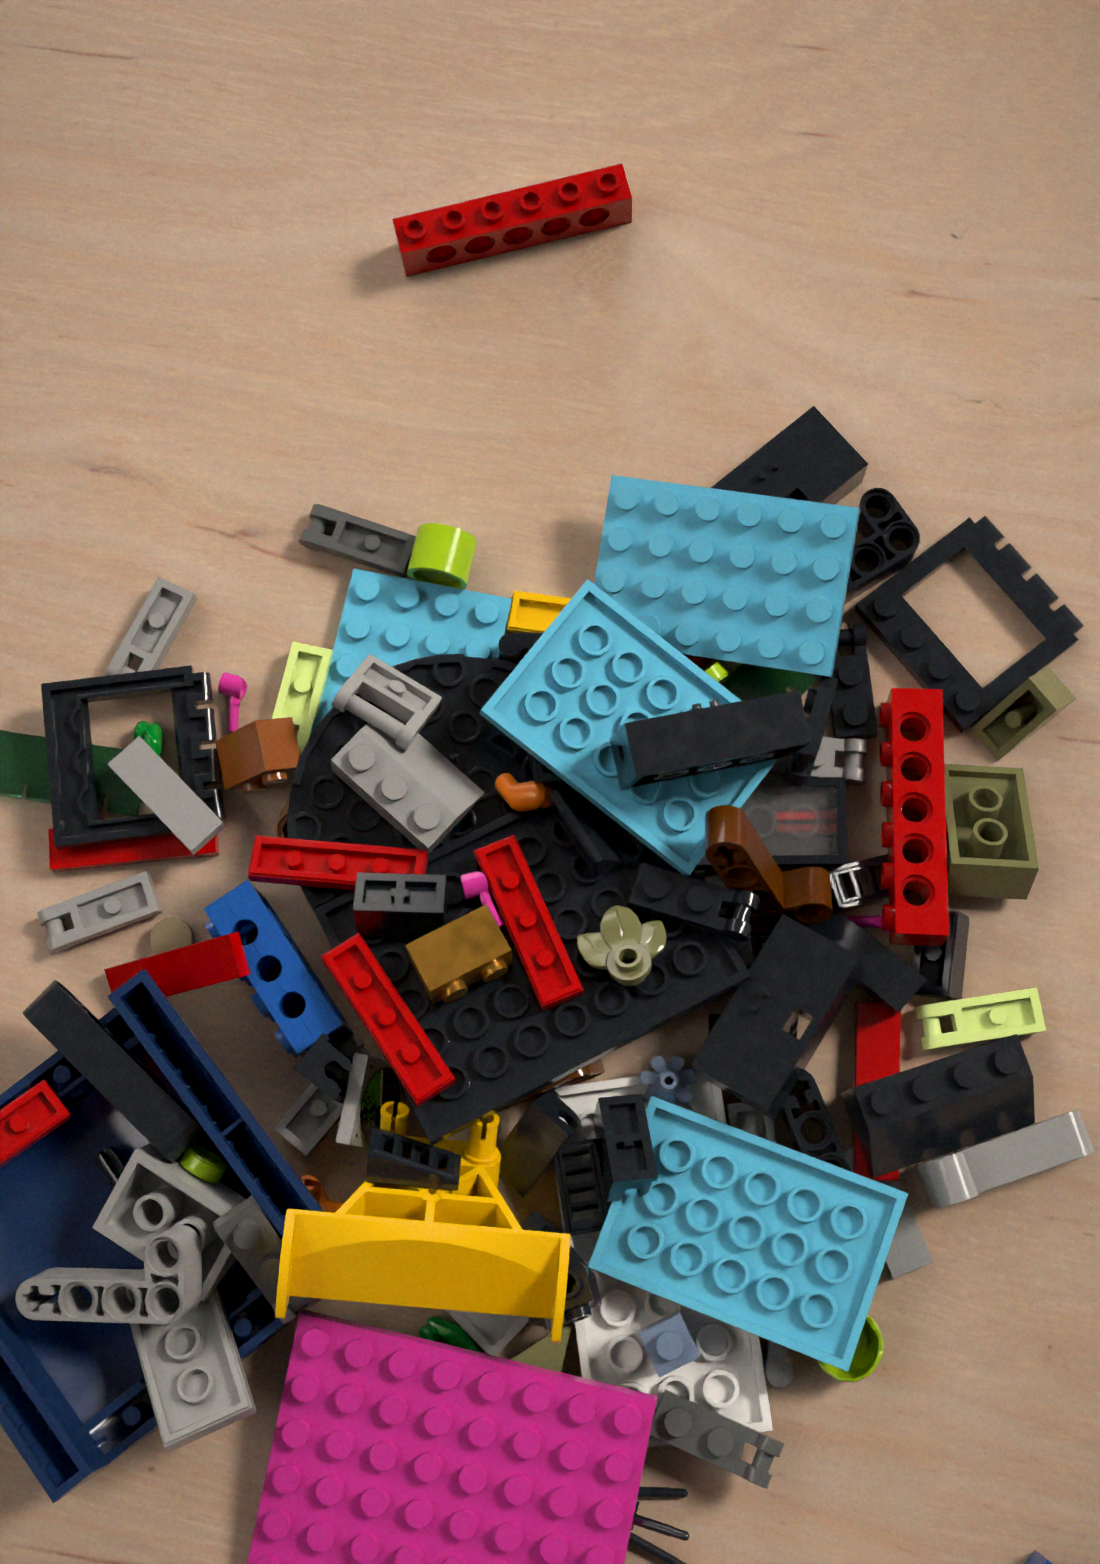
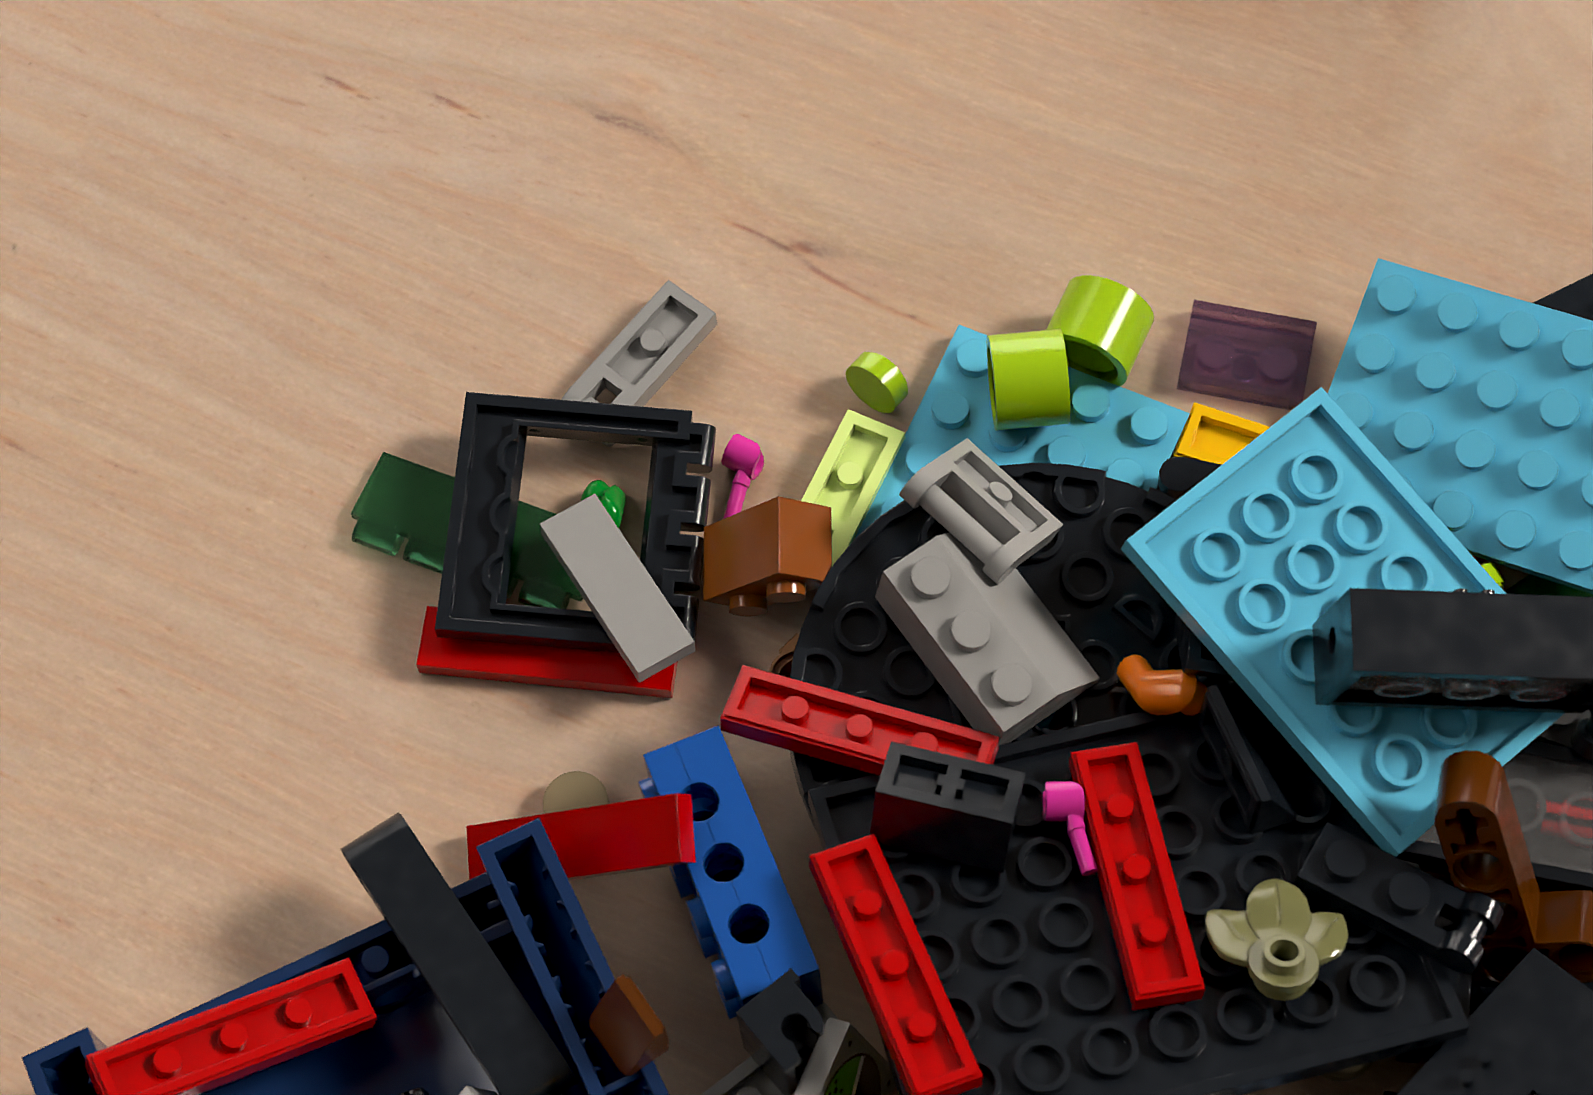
camera: 10 degrees right, 10 degrees down
(100, 911) = (477, 742): light grey plate -> none
(227, 1095) = (628, 1027): none -> reddish brown slope
(308, 618) = (877, 382): none -> lime tile
(359, 540) = (971, 284): dark grey plate -> none
(402, 602) = (1028, 379): none -> lime piece
(460, 955) = (1024, 896): pearl gold brick -> none
(541, 551) = (1246, 355): none -> clear purple plate

